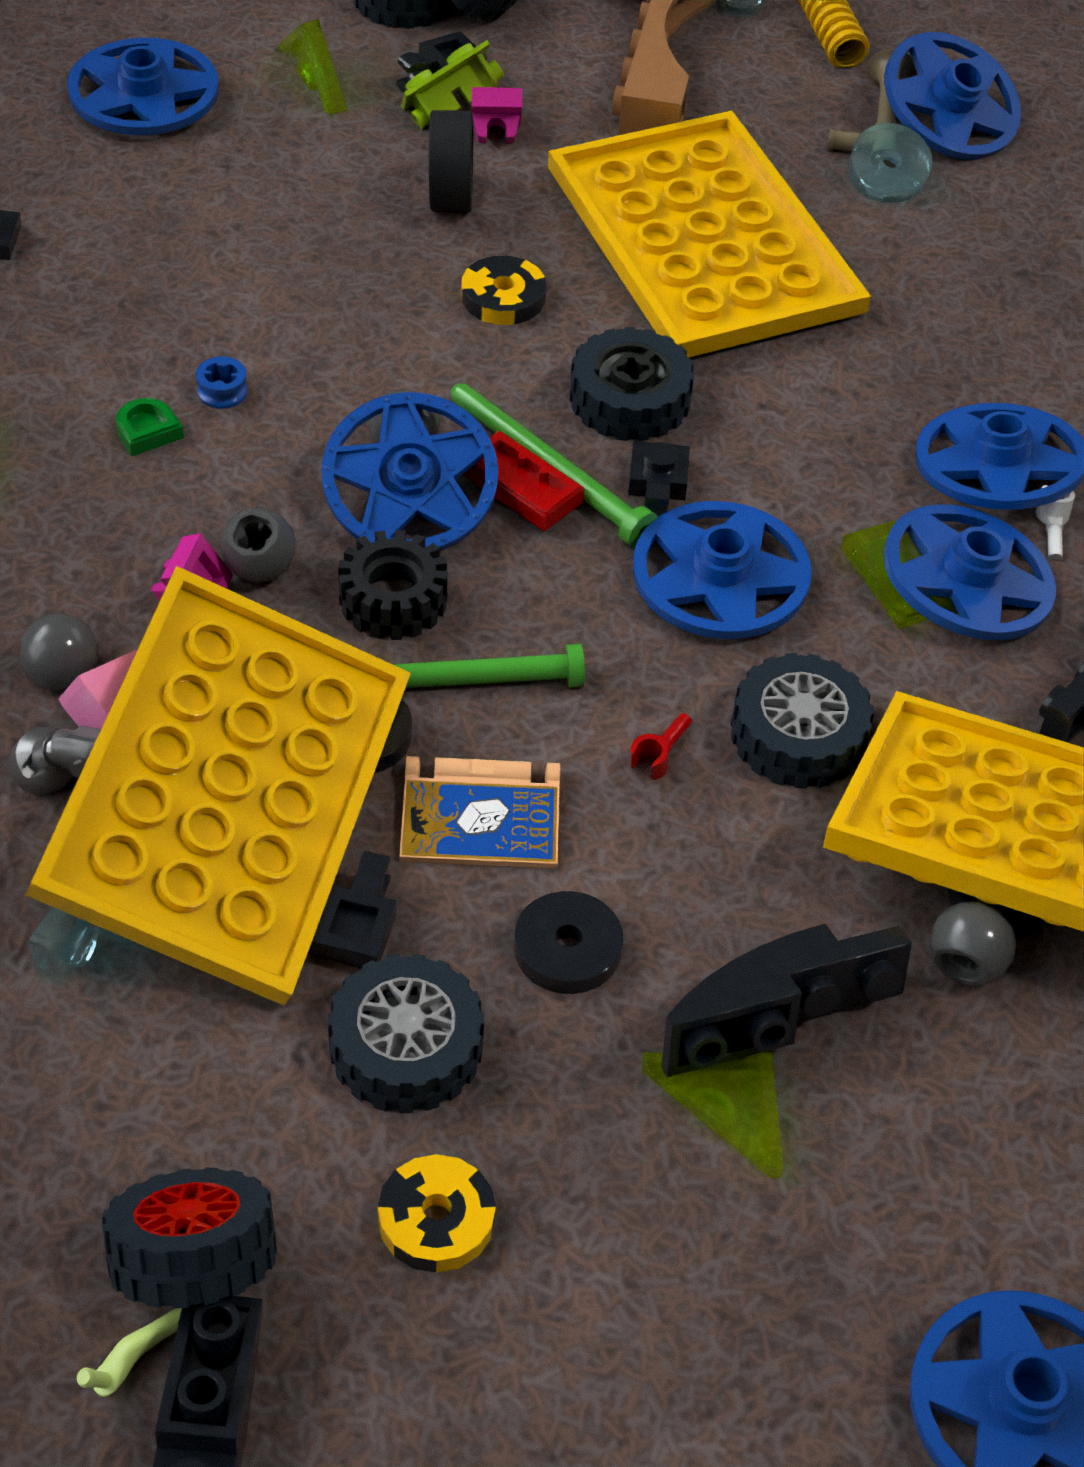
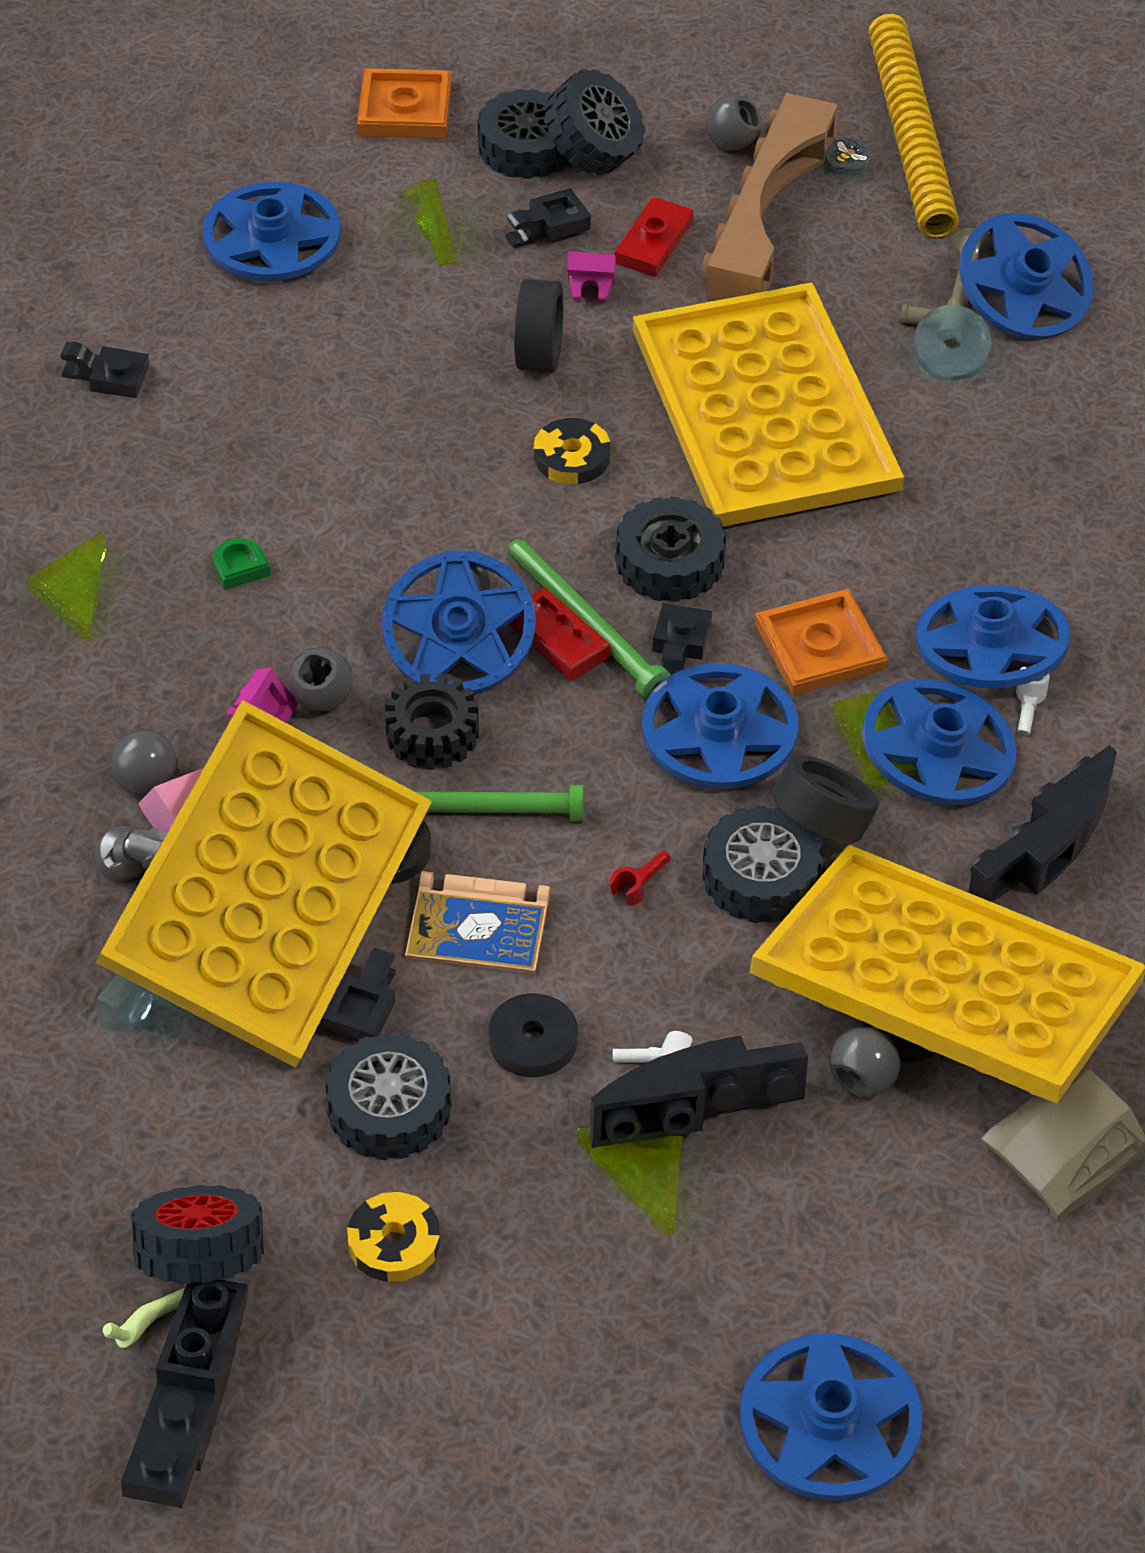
camera: 10 degrees right, 0 degrees up
(221, 382) = (313, 516): blue bush -> none
(464, 70) = (567, 234): lime hinge -> none
(555, 76) = (654, 236): none -> red plate
(740, 940) = (673, 1042): none -> white hand
(813, 473) = (820, 641): none -> orange tile
(864, 640) = (825, 799): none -> black tyre

